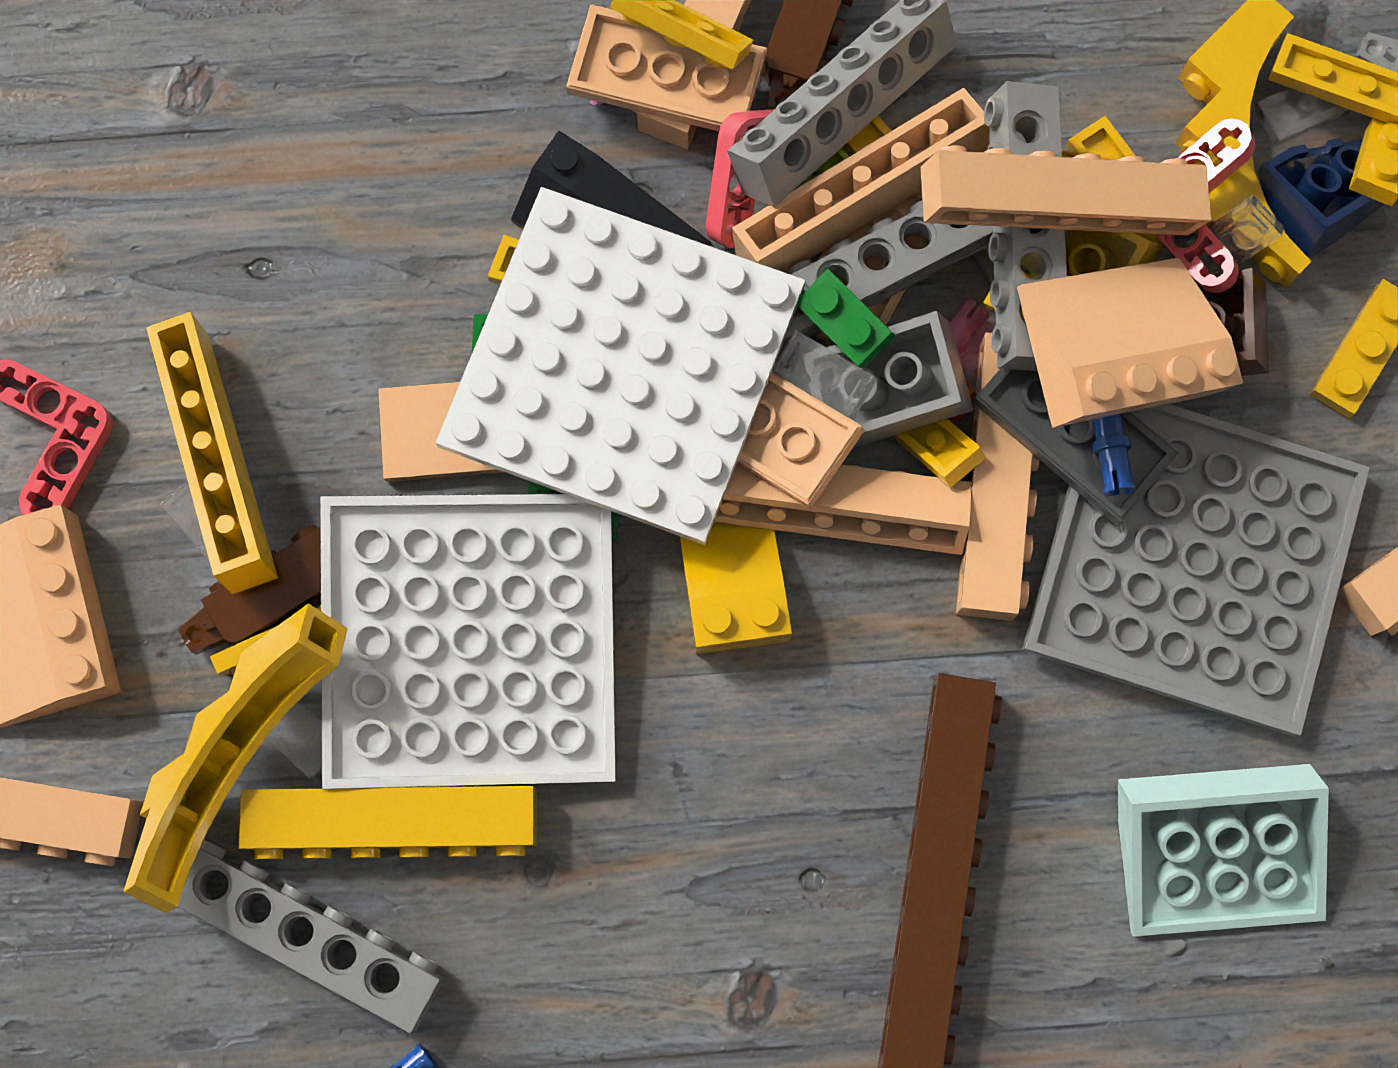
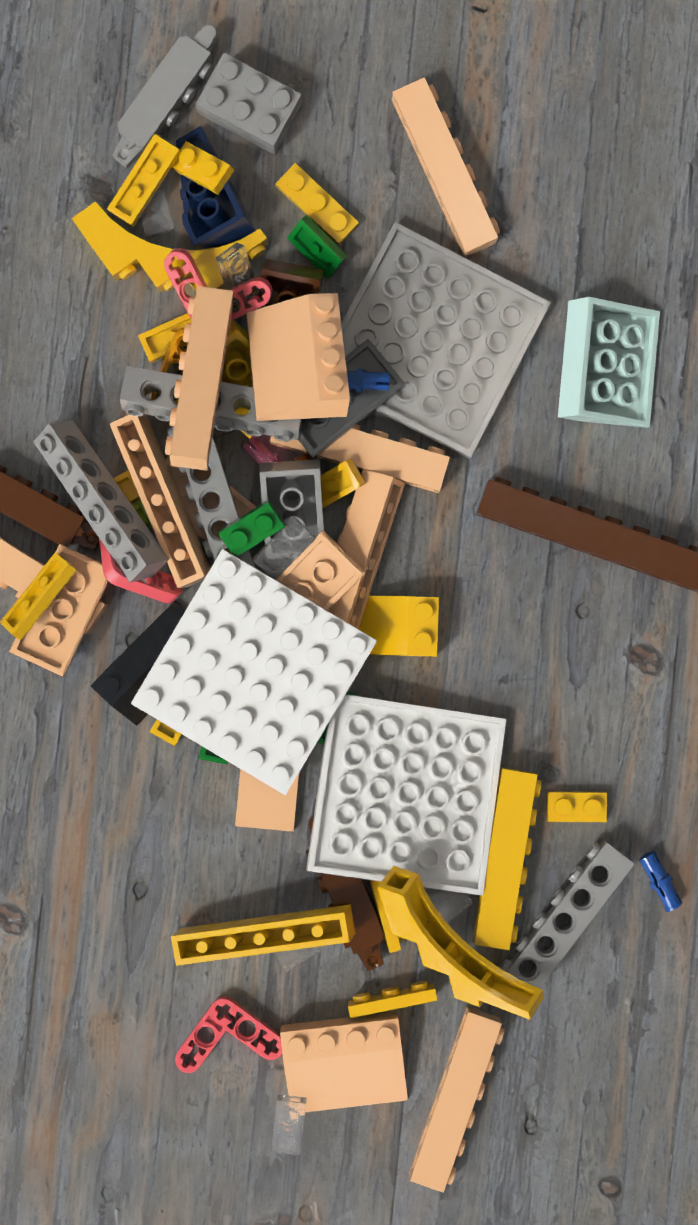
camera: 80 degrees left, 10 degrees up
(137, 677) = (391, 999): none -> yellow plate
(491, 924) = (576, 806): none -> yellow plate
(1301, 357) = (317, 246): none -> green plate

